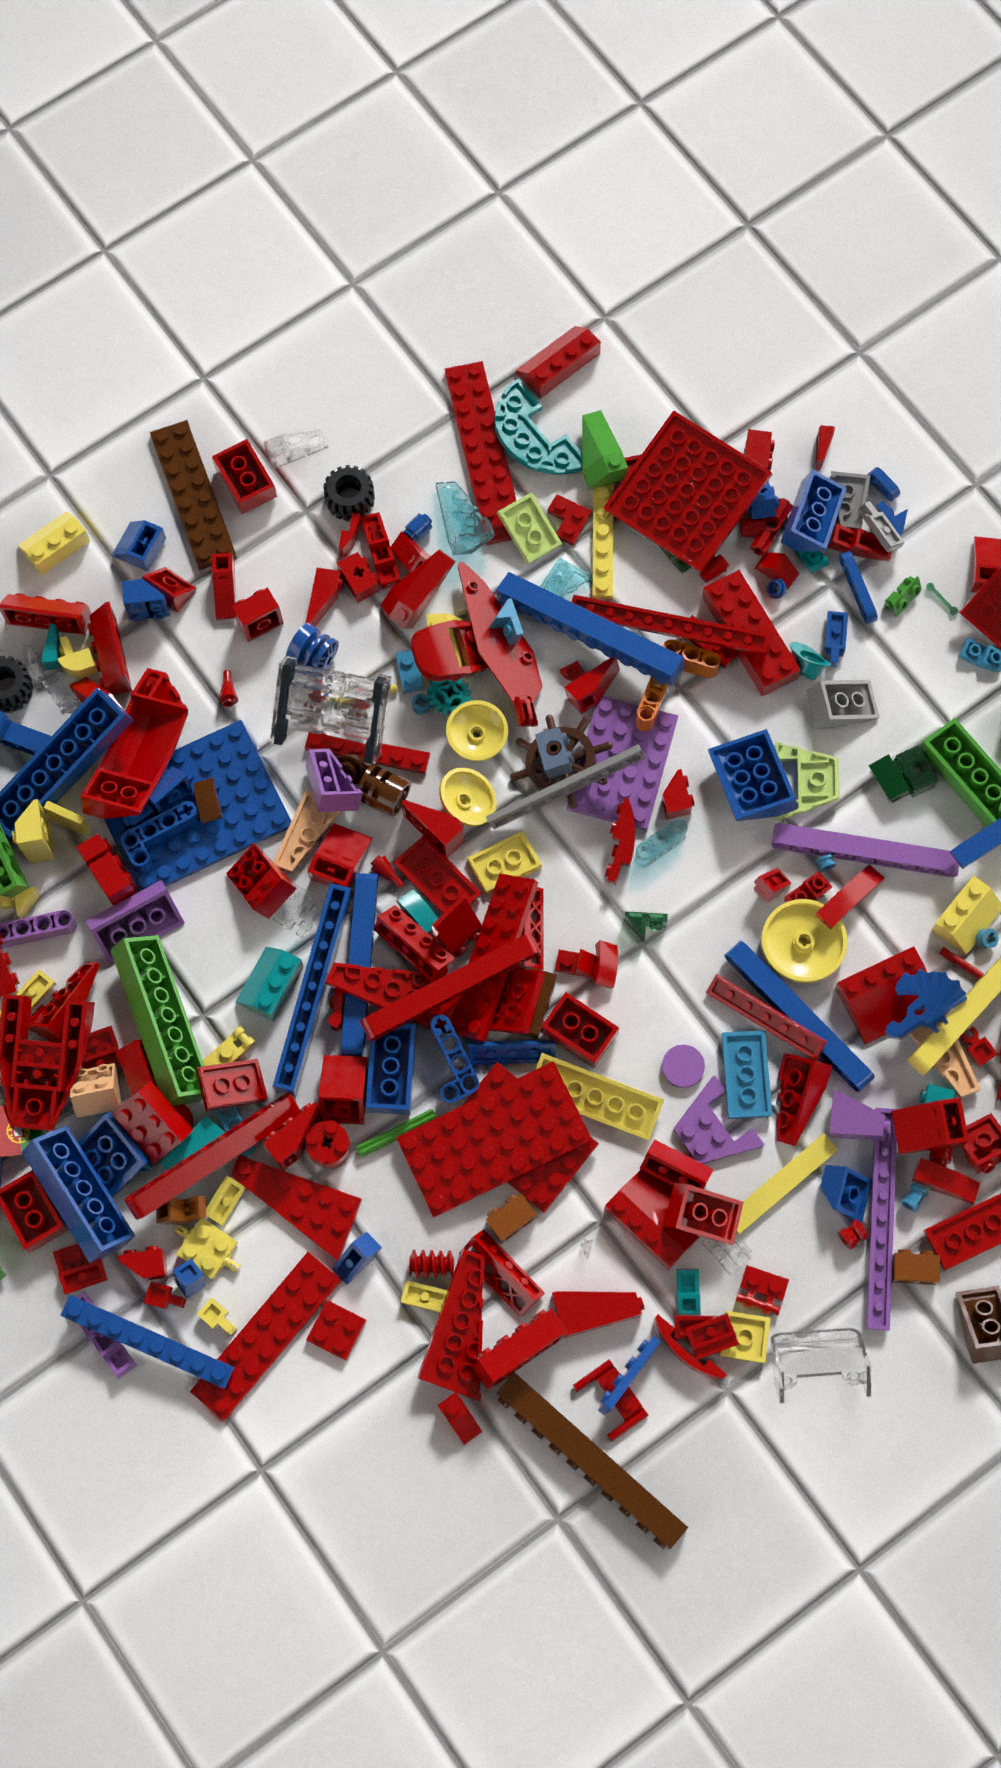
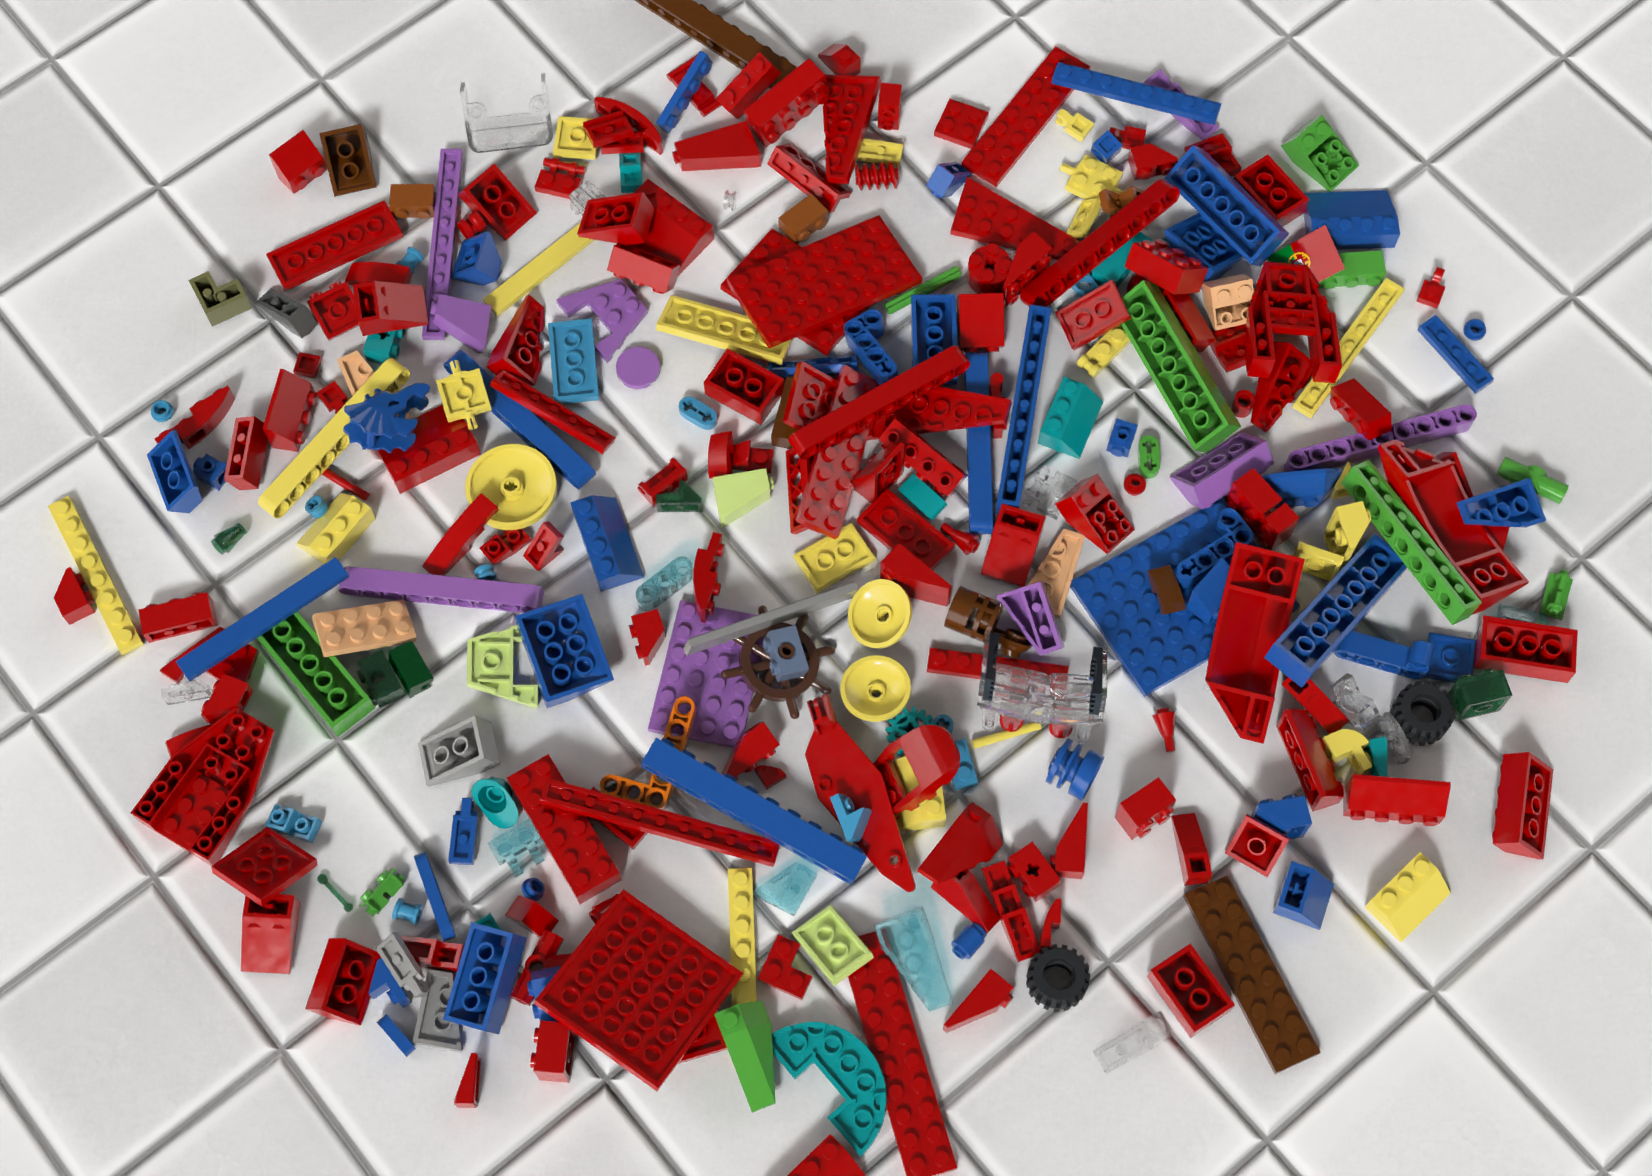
camera: 175 degrees right, 5 degrees down
(69, 896) = (1303, 487): none -> blue wedge
(97, 980) = (1246, 397): none -> red beam
(196, 941) = (1143, 456): none -> bright green beam
(221, 919) = (1134, 490): none -> red plate
(226, 964) = (1121, 438): none -> blue brick
(411, 482) = (982, 1001): none -> red slope
(411, 1342) = (889, 106): none -> red brick
(559, 1377) = (748, 85): none -> red brick
(588, 925) = (741, 493): none -> yellowish green slope
(622, 1017) = (696, 416): none -> dark azure beam
(661, 943) = (664, 481): none -> red hinge
(714, 887) = (606, 541): none -> blue slope
(793, 626) = (513, 843): none -> clear light blue plate
(828, 1261) = (497, 202): none -> red slope
(852, 1030) = (463, 395): none -> light yellow plate
(880, 576) = (407, 911): none -> dark azure bush
(929, 525) = (343, 981): none -> red slope
(933, 811) = (364, 628): none -> light nougat plate

